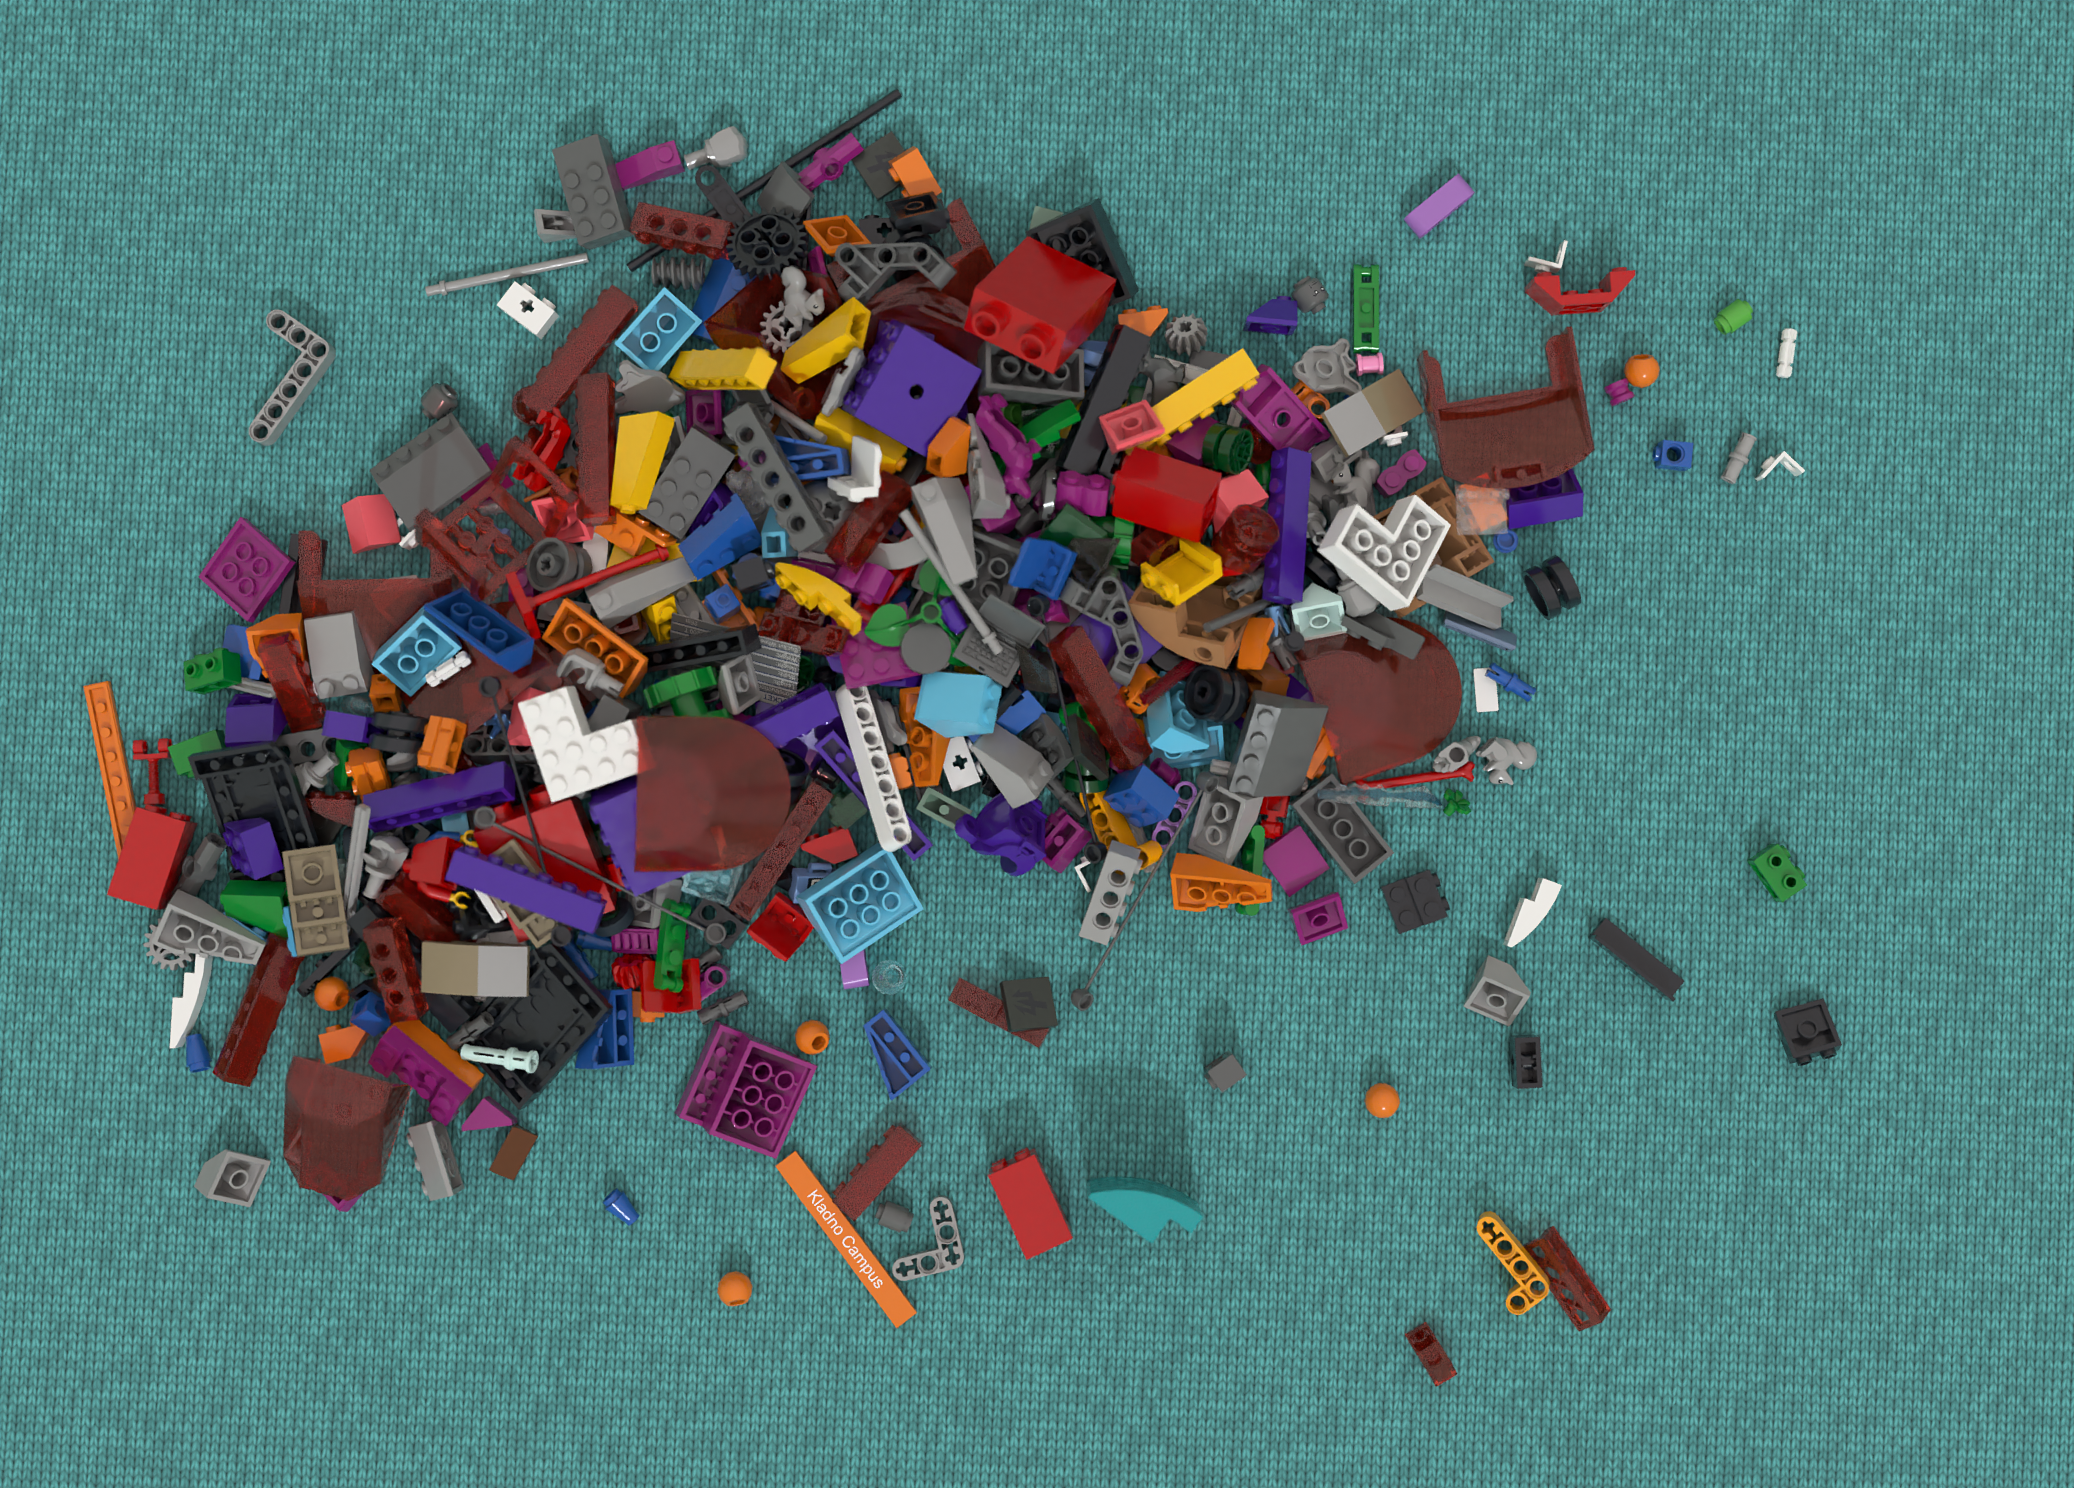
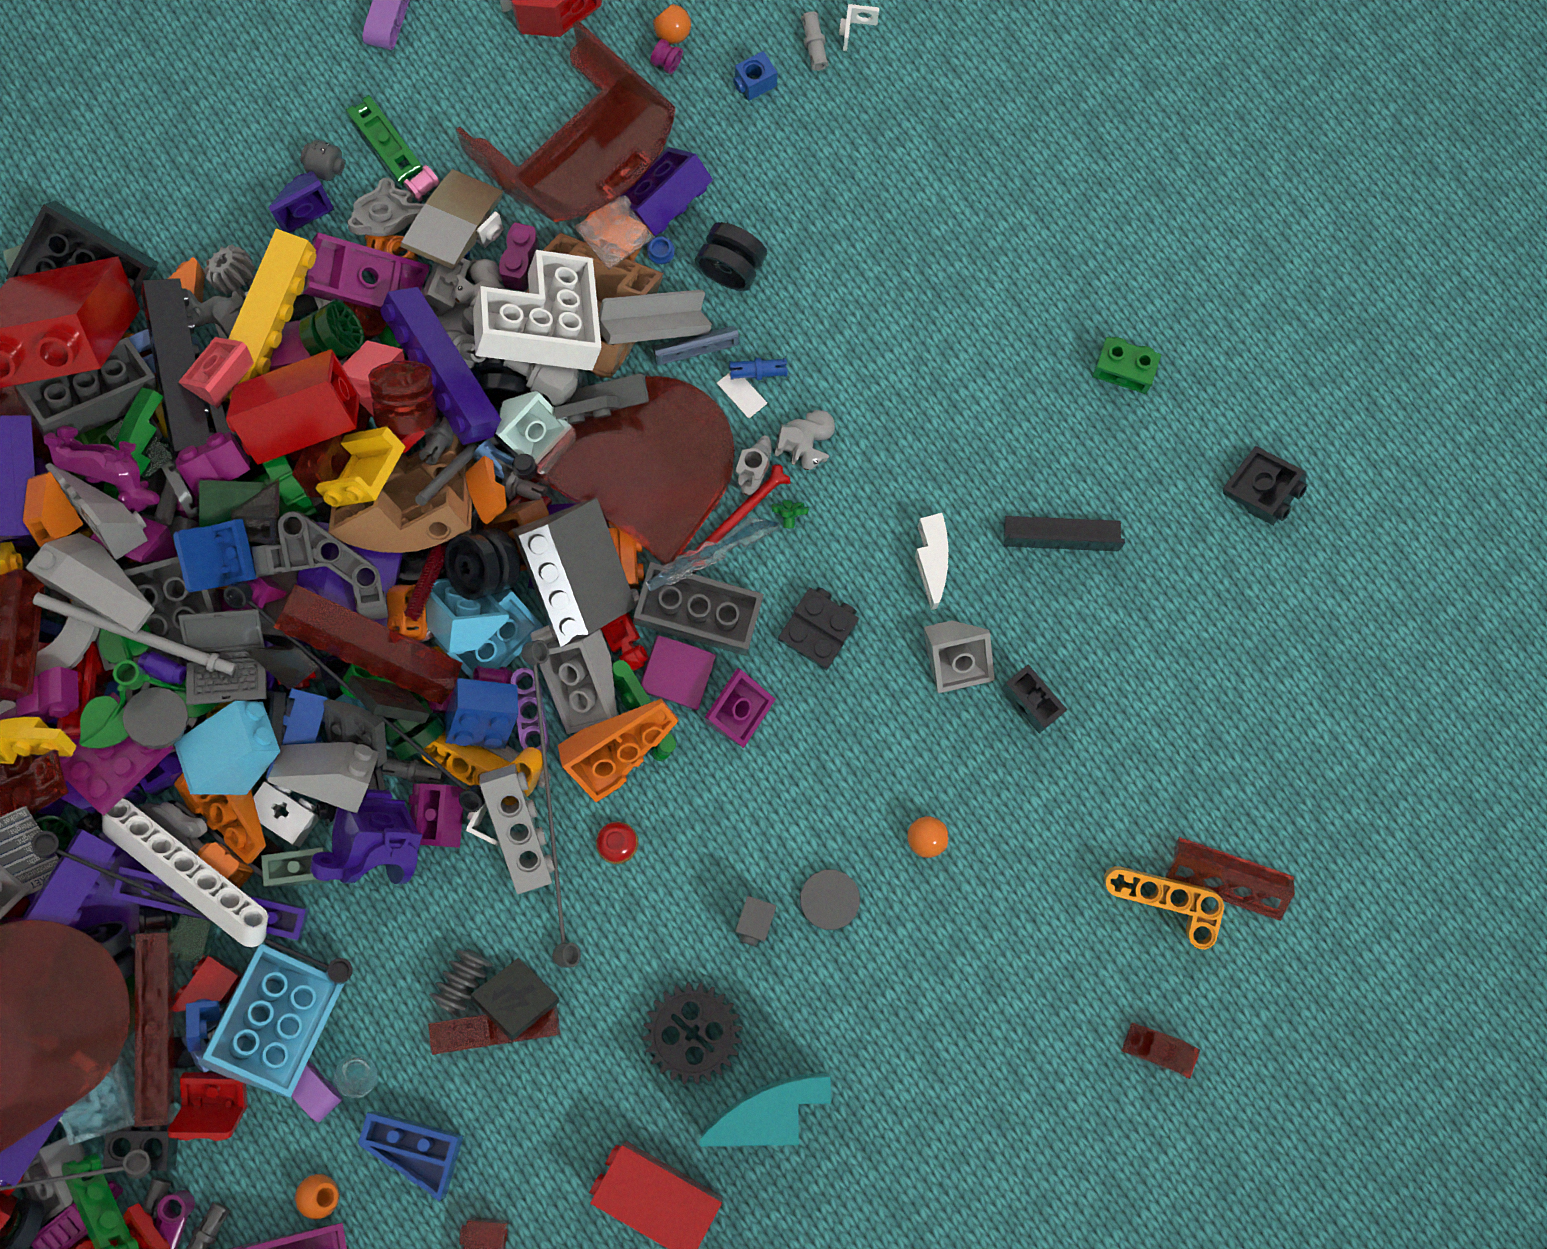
camera: 40 degrees left, 10 degrees down
(799, 686) = (46, 844): none -> black piece
(812, 868) = (196, 1021): none -> blue bracket
(1000, 964) = (460, 980): none -> dark grey piece
(1151, 1106) = (674, 1055): none -> black gear
(1168, 946) = (617, 842): none -> red piece
(1284, 1092) = (829, 899): none -> dark grey tile

